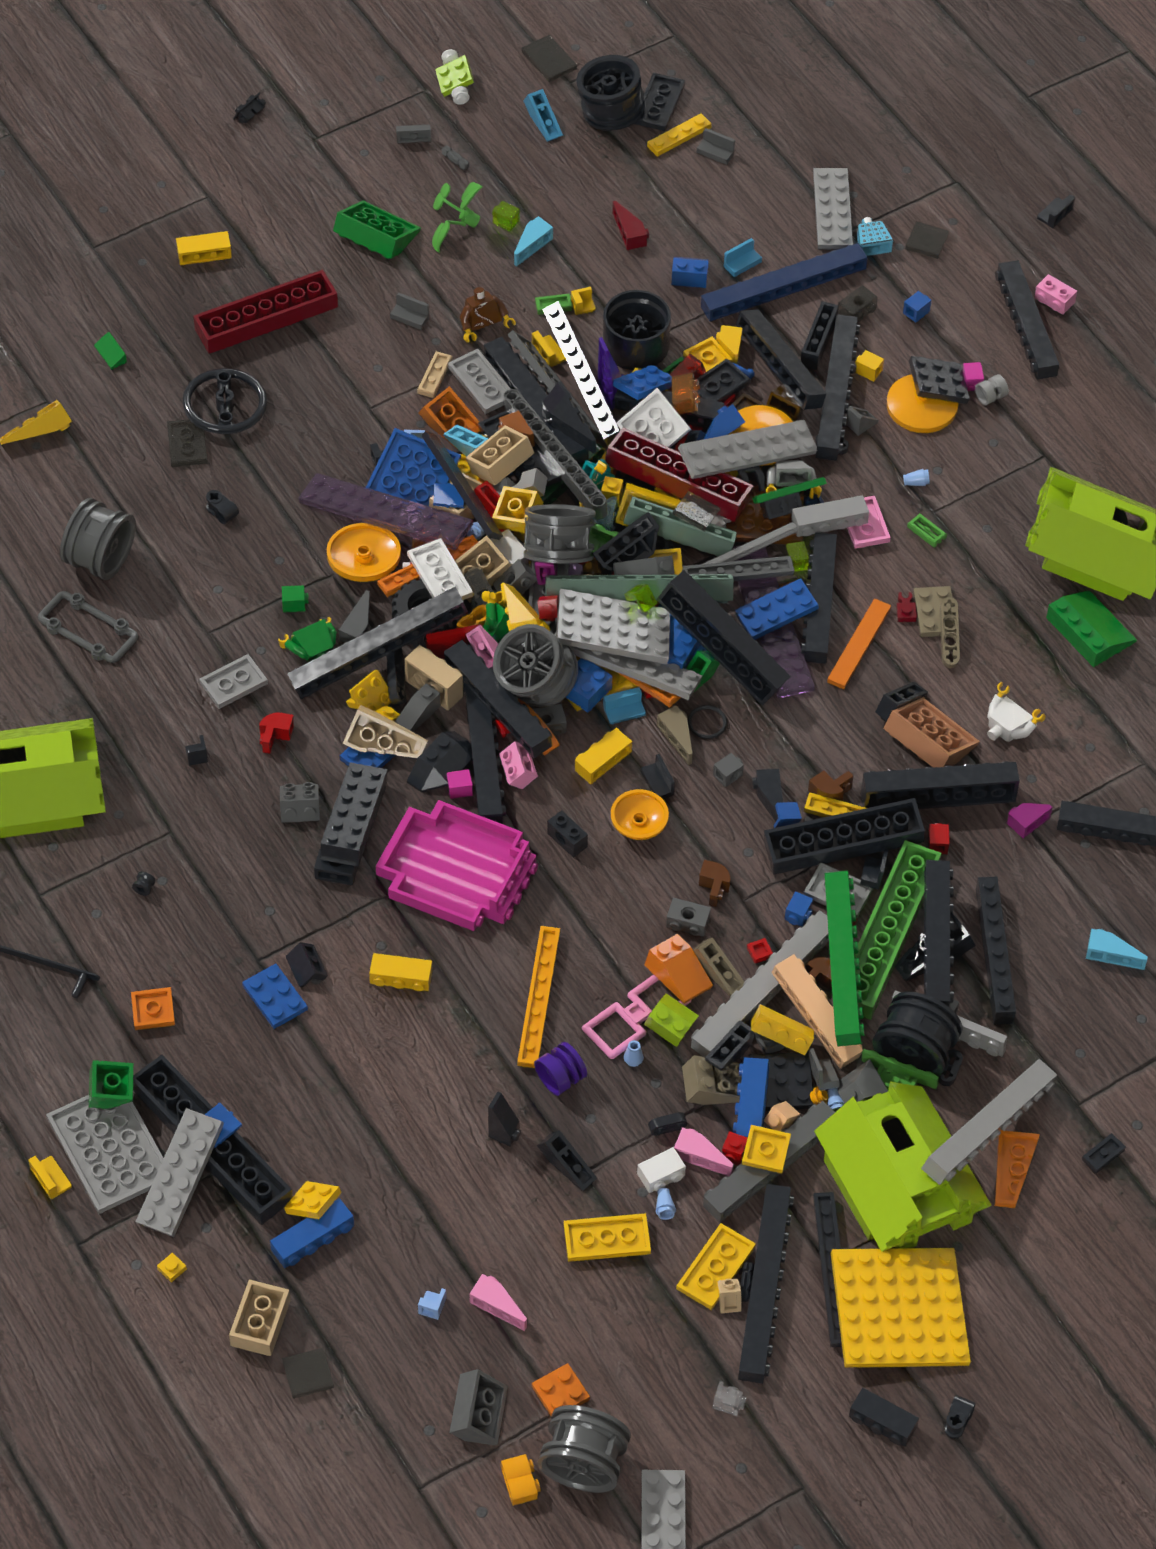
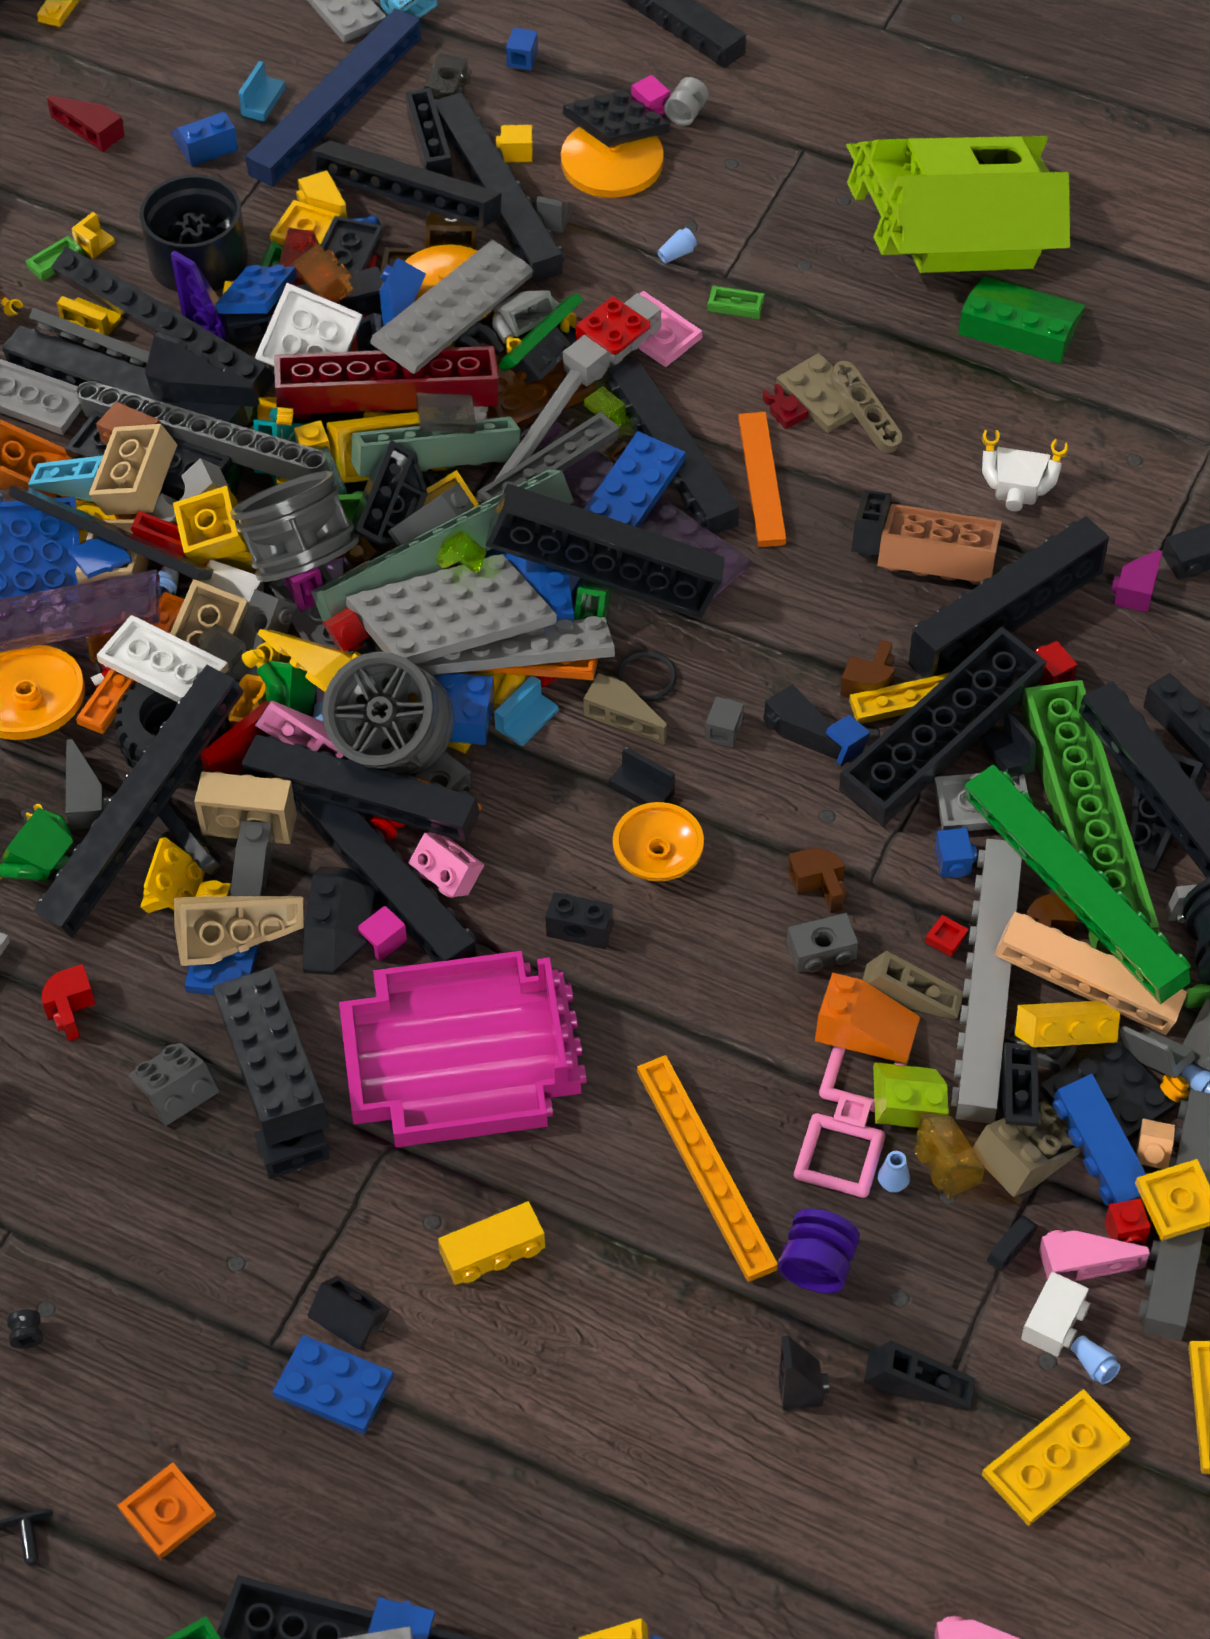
camera: 30 degrees left, 0 degrees up
(603, 755) = (547, 791): yellow brick -> none
(667, 1059) = (947, 1155): none -> clear yellow slope
(832, 508) = (613, 326): none -> red bracket

